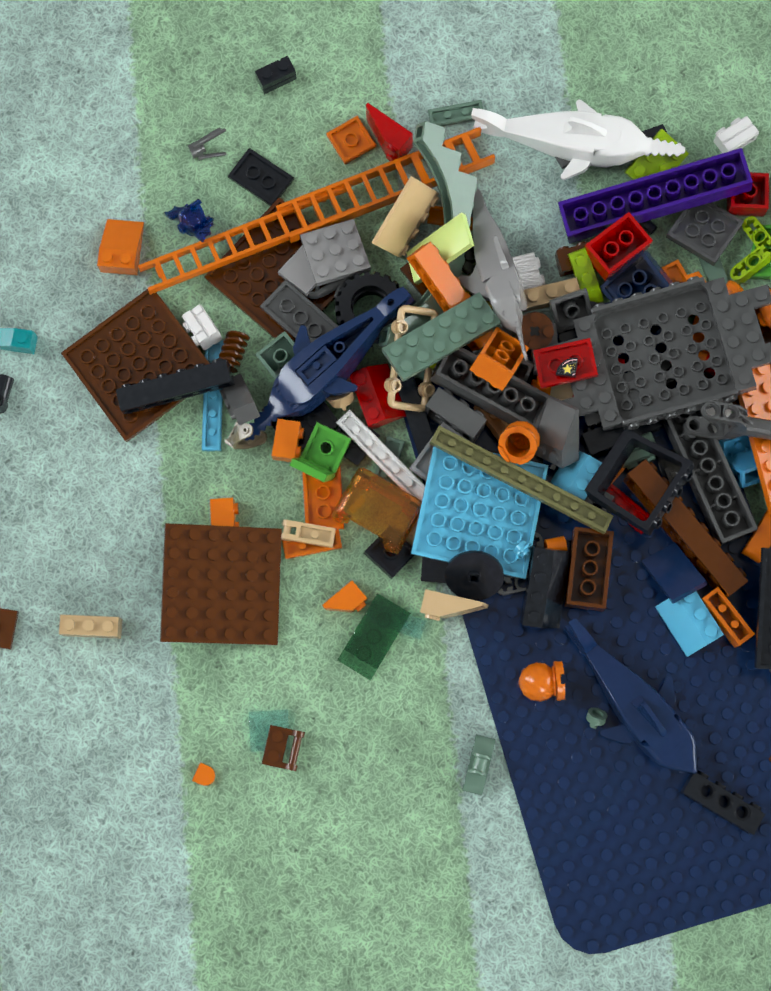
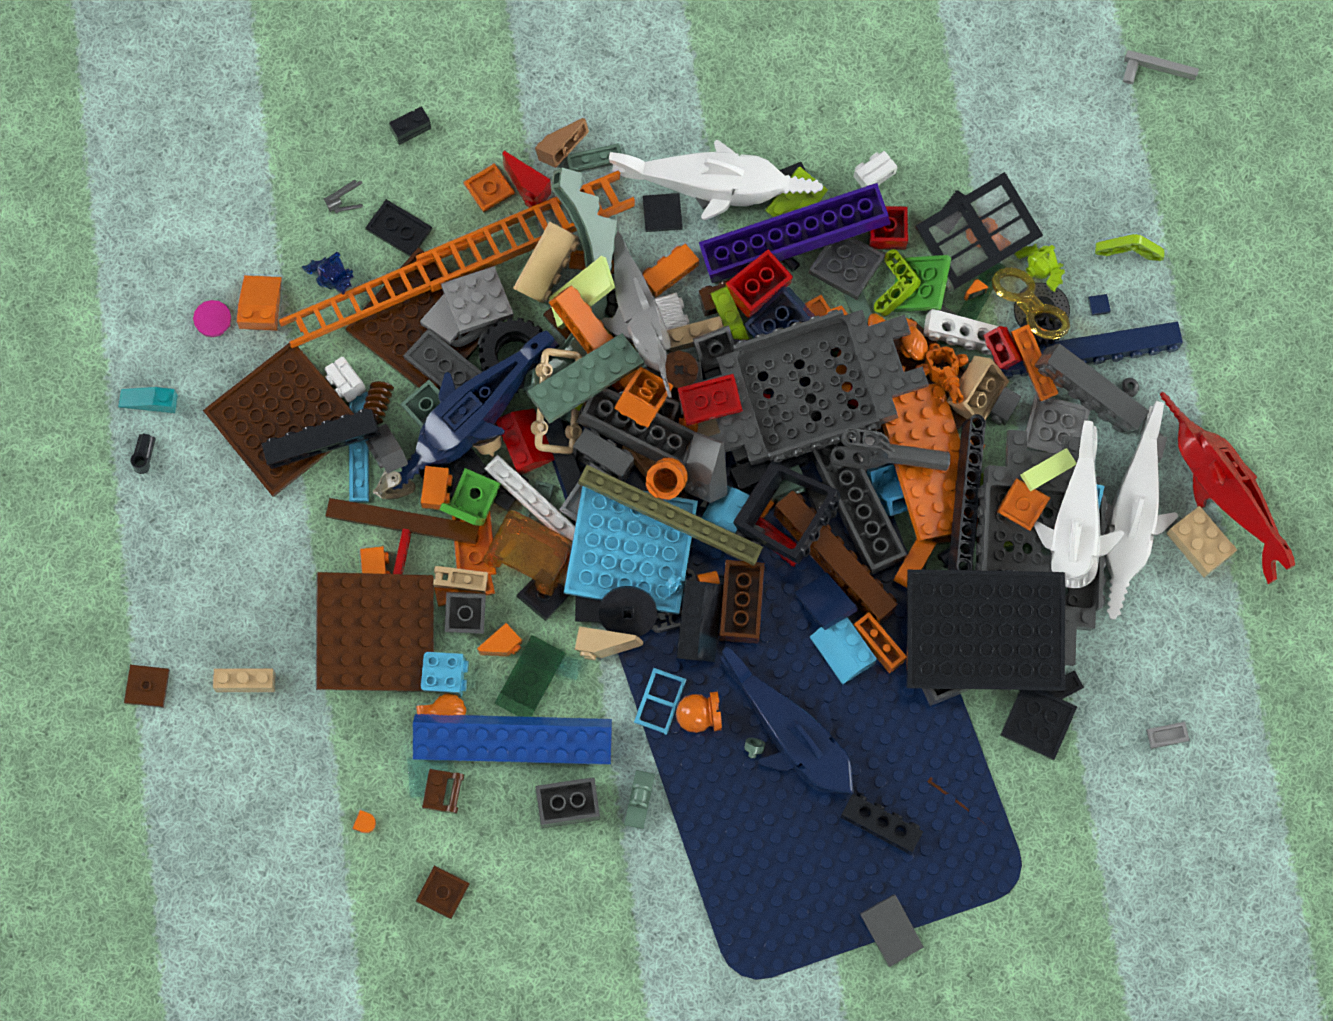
camera: 10 degrees left, 5 degrees down
(74, 261) = (212, 318): none -> dark pink tile
(251, 504) = (402, 551): none -> red tile
(252, 472) = (398, 520): none -> reddish brown tile
(279, 850) = (442, 892): none -> reddish brown plate
(288, 628) = (444, 673): none -> medium azure bracket
(289, 667) = (446, 704): none -> orange animal
(311, 568) = (465, 612): none -> dark grey brick
(354, 699) = (512, 739): none -> blue brick
(407, 766) = (567, 802): none -> dark grey brick
(422, 98) = (560, 143): none -> medium nougat slope
(489, 660) = (646, 696): none -> medium azure window
(522, 170) = (662, 212): none -> black tile
(528, 228) = (670, 269): none -> orange brick
(568, 368) = (712, 404): black tile -> none
(728, 912) = (891, 930): none -> dark grey tile

